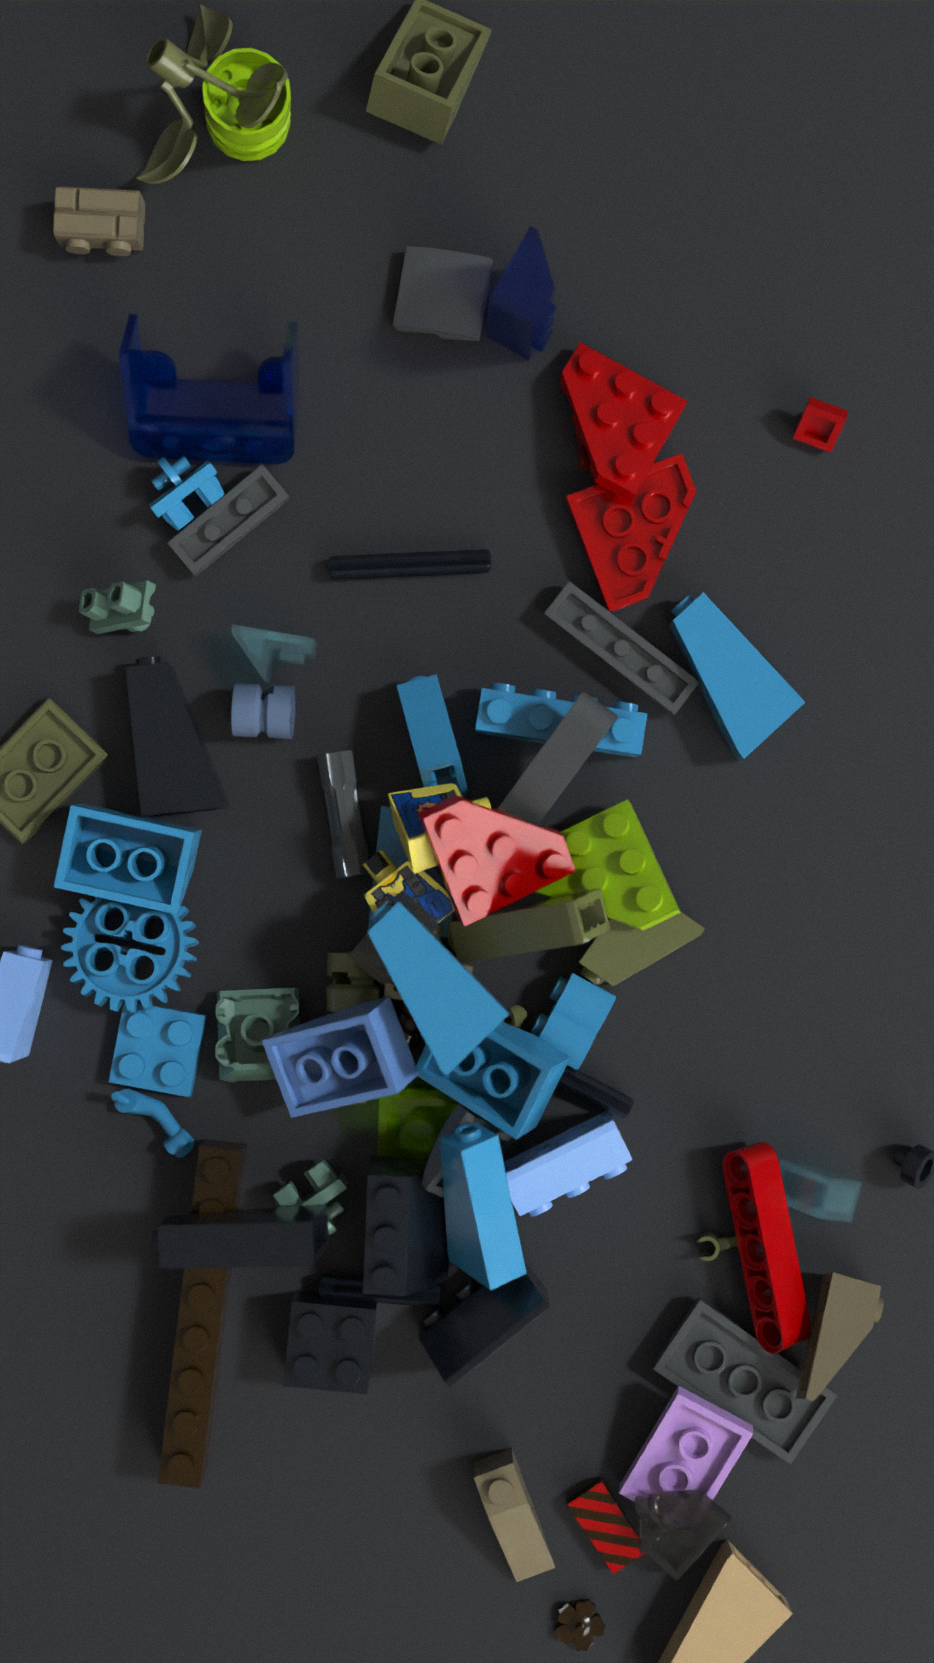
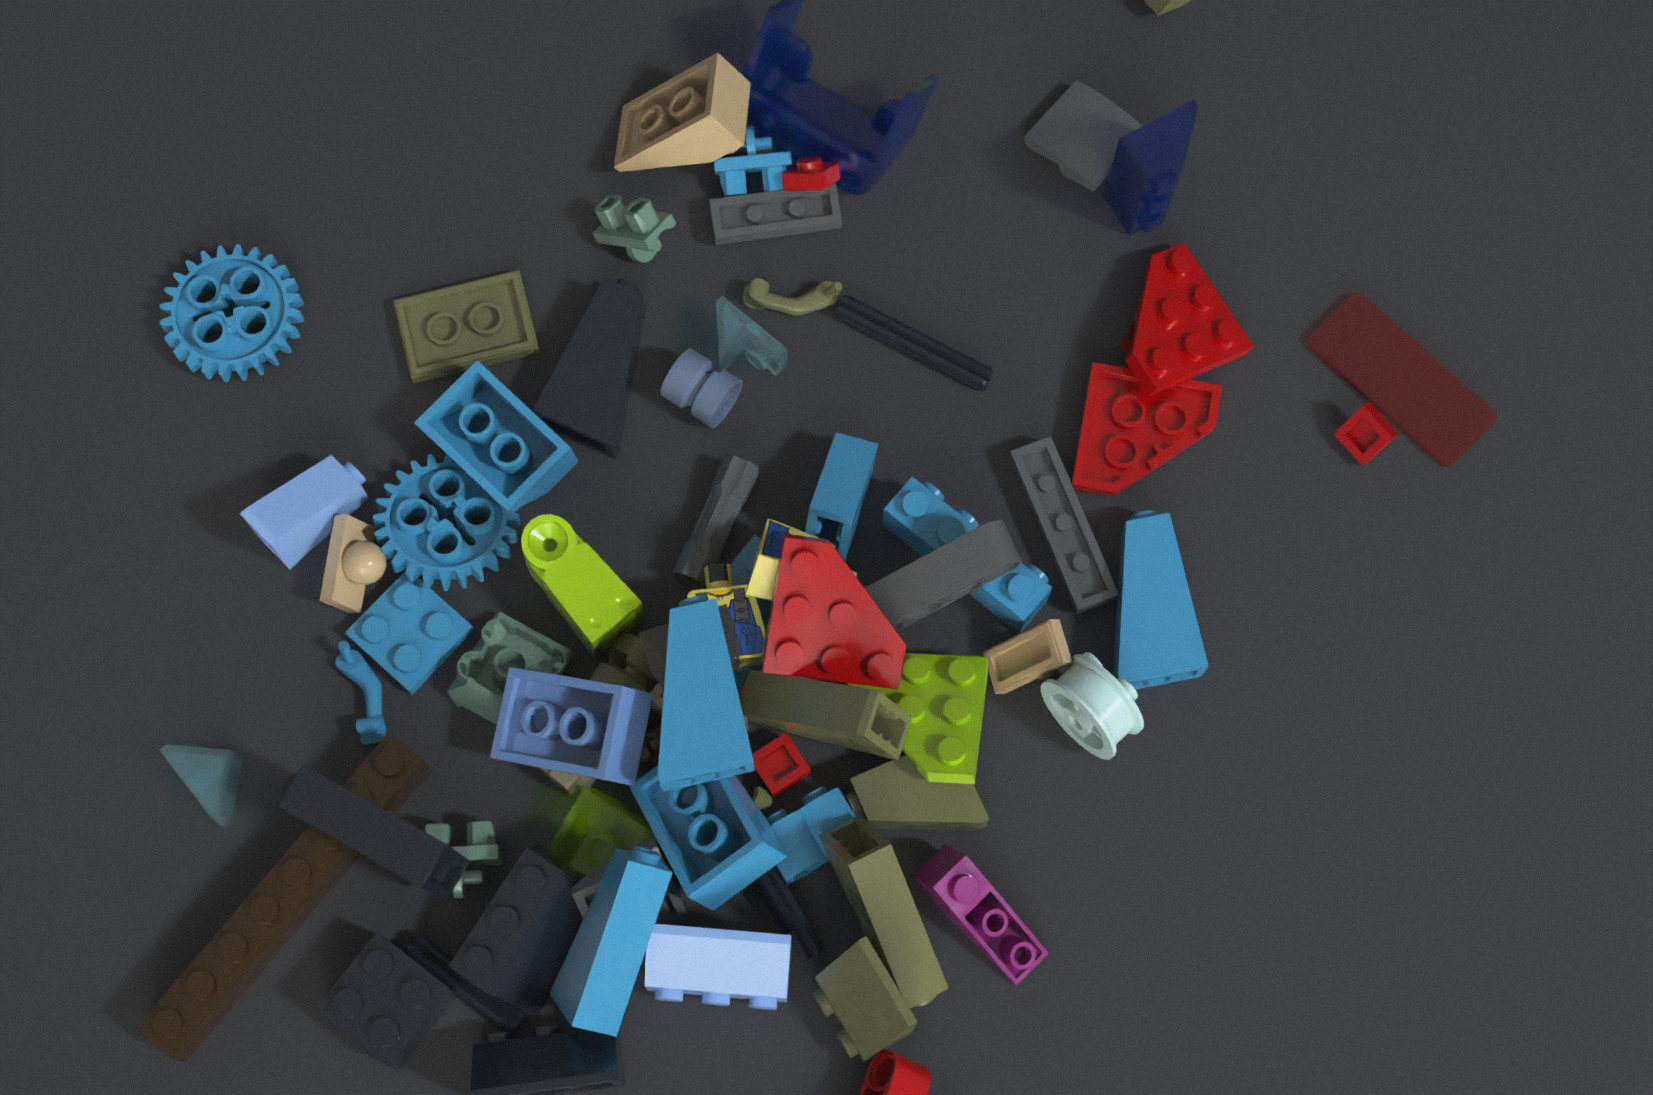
camera: 30 degrees right, 15 degrees down
(77, 1026) = (351, 564): none -> tan tile
(80, 1260) = (210, 776): none -> clear light blue slope
(104, 486) = (685, 119): none -> tan slope
(238, 471) = (810, 175): none -> red plate
(271, 939) = (579, 583): none -> lime piece
(310, 569) = (757, 297): none -> olive piece
(514, 980) = (780, 765): none -> red plate
(658, 779) = (1028, 656): none -> tan tile
(666, 1048) = (885, 908): none -> olive slope
(694, 1128) = (863, 1002): none -> olive slope
(734, 789) = (1093, 705): none -> light aqua wheel
(736, 1001) = (980, 912): none -> magenta slope
(821, 356) = (1401, 380): none -> clear red piece

